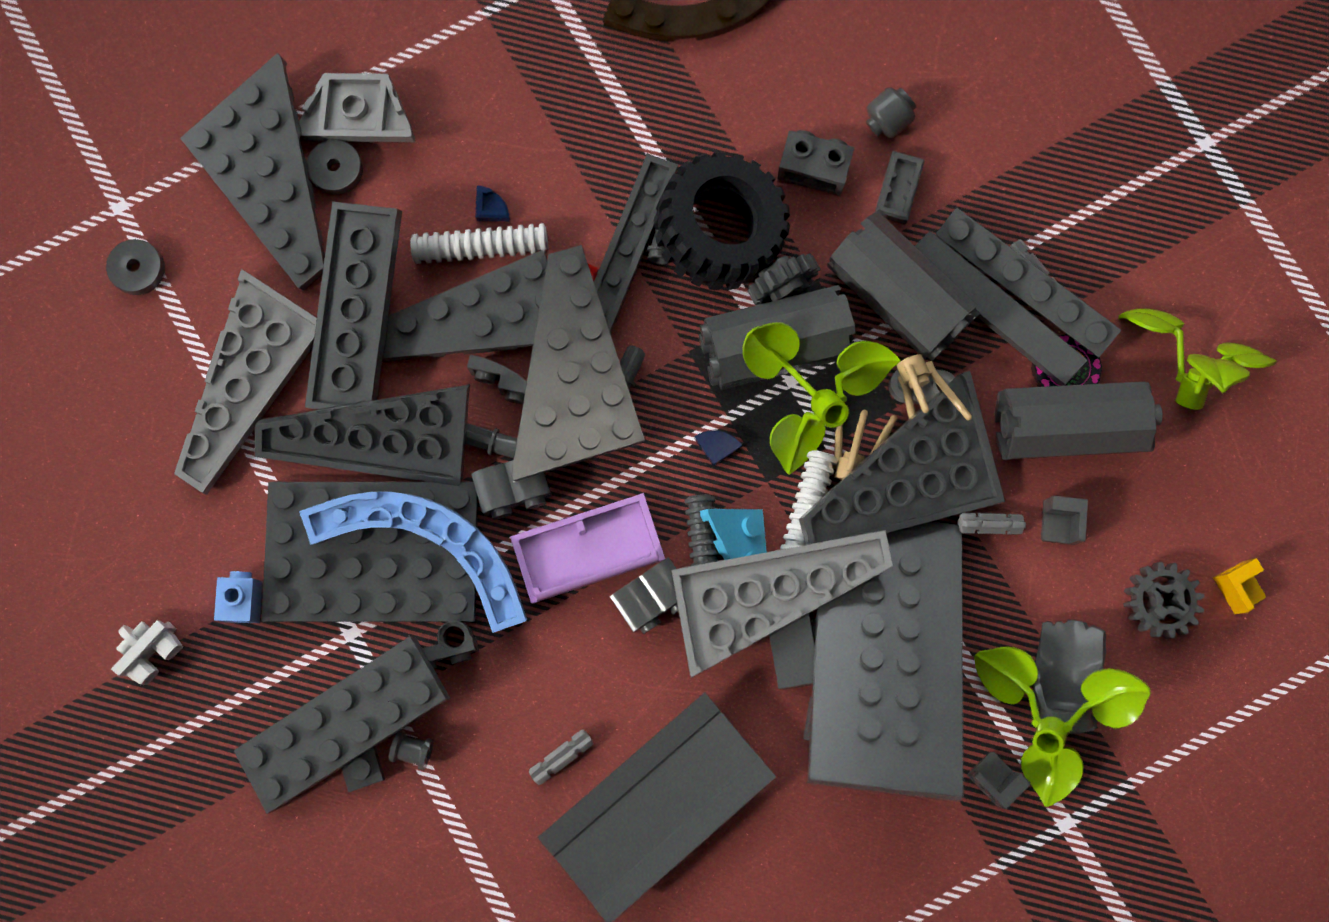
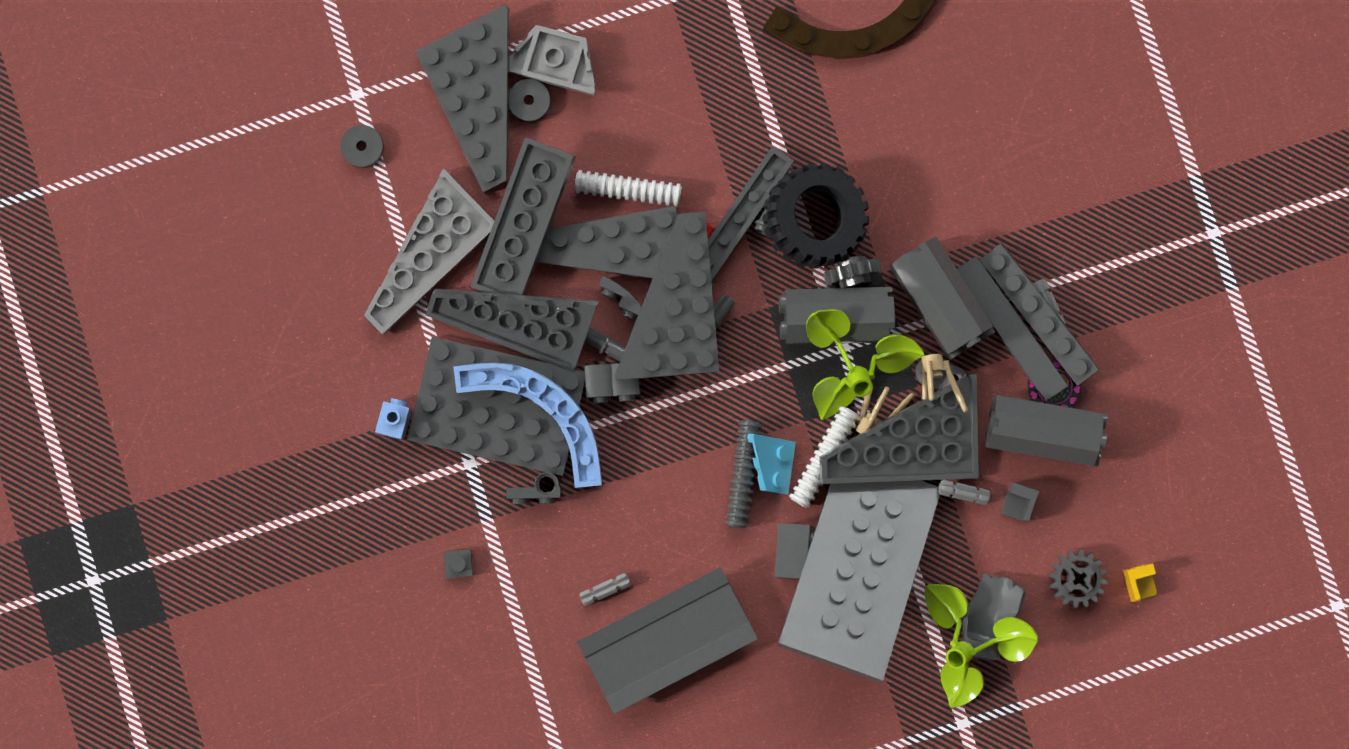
camera: 15 degrees right, 5 degrees up
(141, 645) = (310, 450): white hips -> none
(341, 724) = (452, 528): dark grey plate -> none
(411, 749) = (497, 558): dark grey bush -> none
(490, 206) = (642, 158): dark blue tile -> none
(587, 548) = (658, 441): lavender container -> none
(648, 597) = (698, 487): dark grey brick -> none
(717, 445) = (773, 385): dark blue tile -> none
(752, 596) = (769, 506): light grey wing -> none
(815, 162) = (901, 181): dark grey brick -> none
(890, 112) = (969, 155): dark grey head -> none
(899, 187) = (961, 216): dark grey plate -> none
(998, 780) = (919, 679): dark grey panel -> none
(1206, 370) = (1149, 419): lime plant -> none

